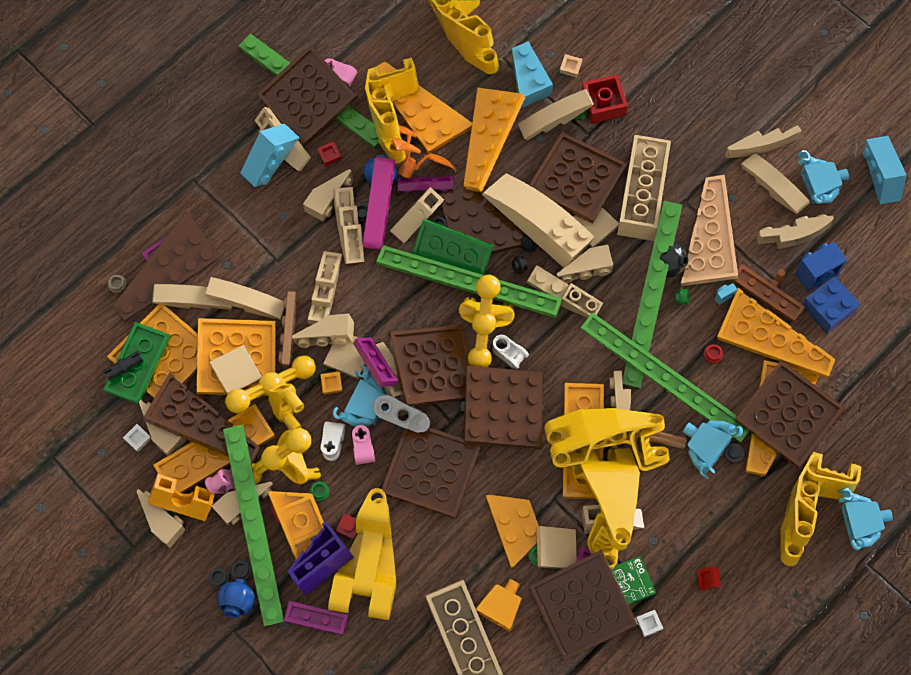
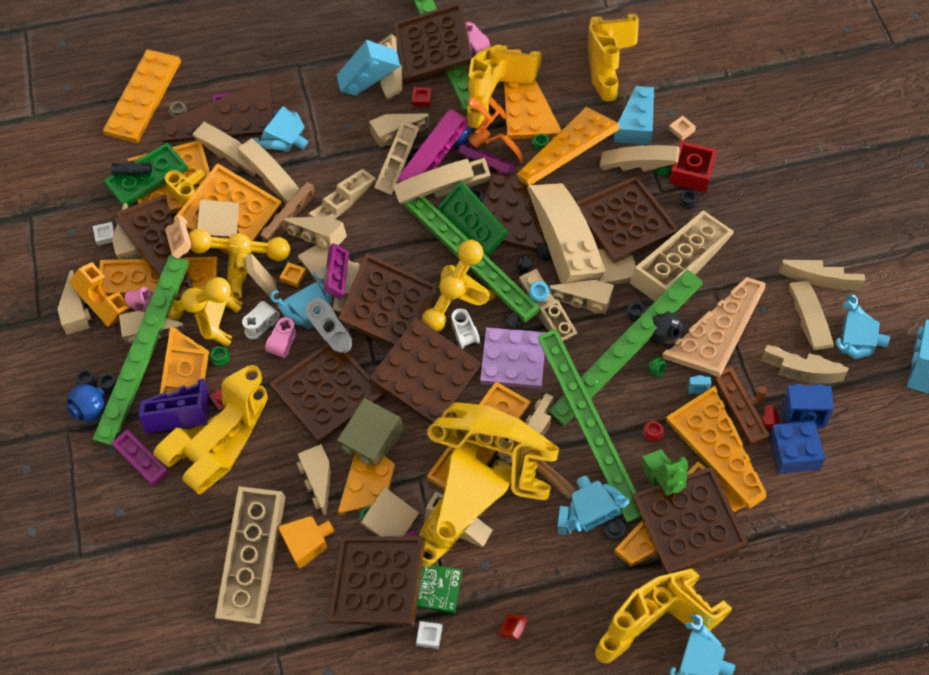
camera: 30 degrees right, 10 degrees down
(72, 287) = (142, 96): none -> light orange plate
(182, 354) = (182, 187): none -> yellow beam
(219, 408) = (178, 237): none -> light nougat plate
(231, 254) = (283, 132): none -> medium azure torso
(313, 402) = (260, 275): none -> tan tile
(399, 231) = (433, 180): none -> tan slope
(460, 138) = (540, 138): none -> green plate
(471, 542) = (318, 473): none -> tan slope
(497, 487) = (371, 433): none -> olive slope
(543, 321) = (512, 320): none -> black plate
(552, 285) = (539, 291): none -> medium azure tile
(563, 353) = (512, 358): none -> lavender plate
(616, 131) = (688, 199): none -> black plate
(636, 257) = (635, 311): none -> black plate
(692, 469) = (563, 518): none -> medium azure tile
(756, 386) = (662, 471): none -> bright green arch
(797, 291) = (770, 417): none -> red plate

